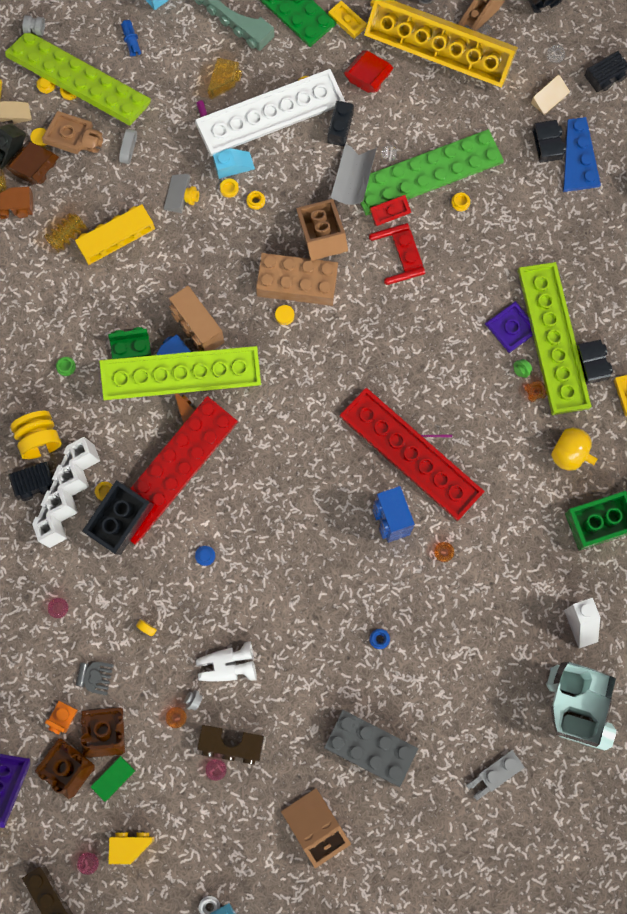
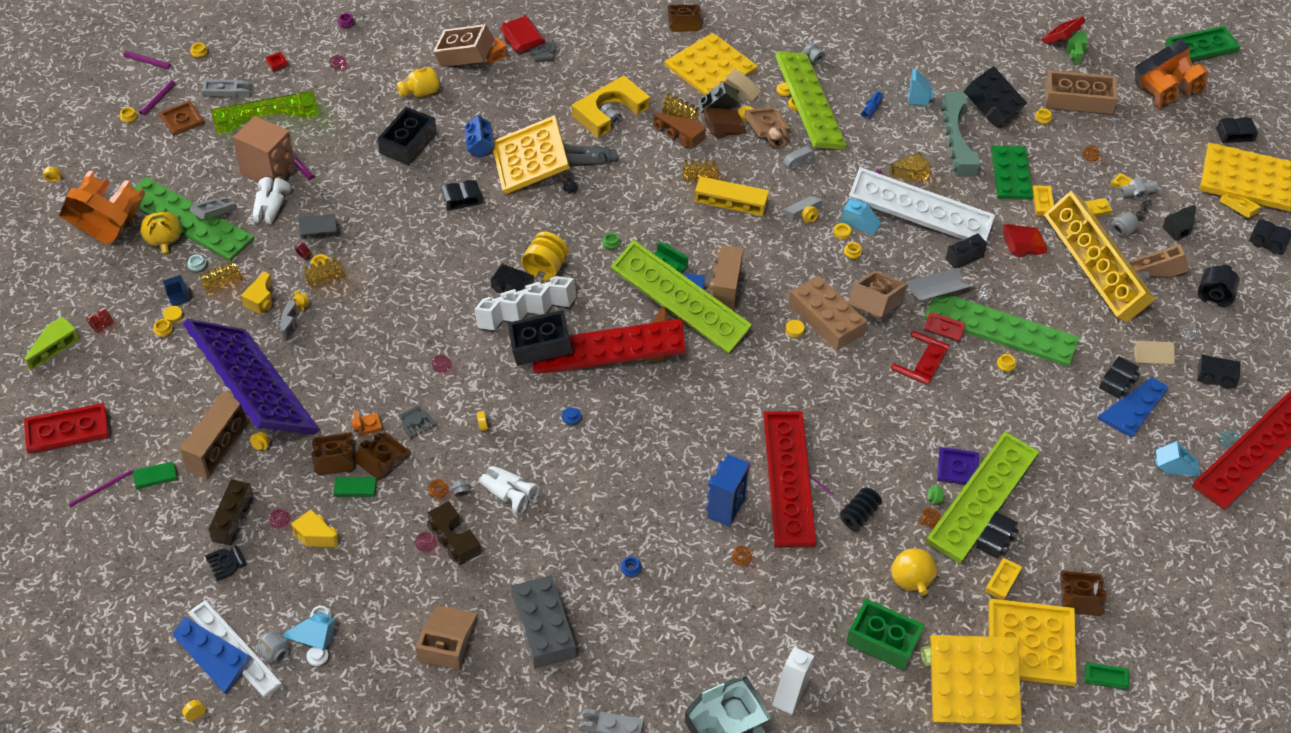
camera: 45 degrees right, 25 degrees down
(485, 432) = (860, 508): none -> black piece

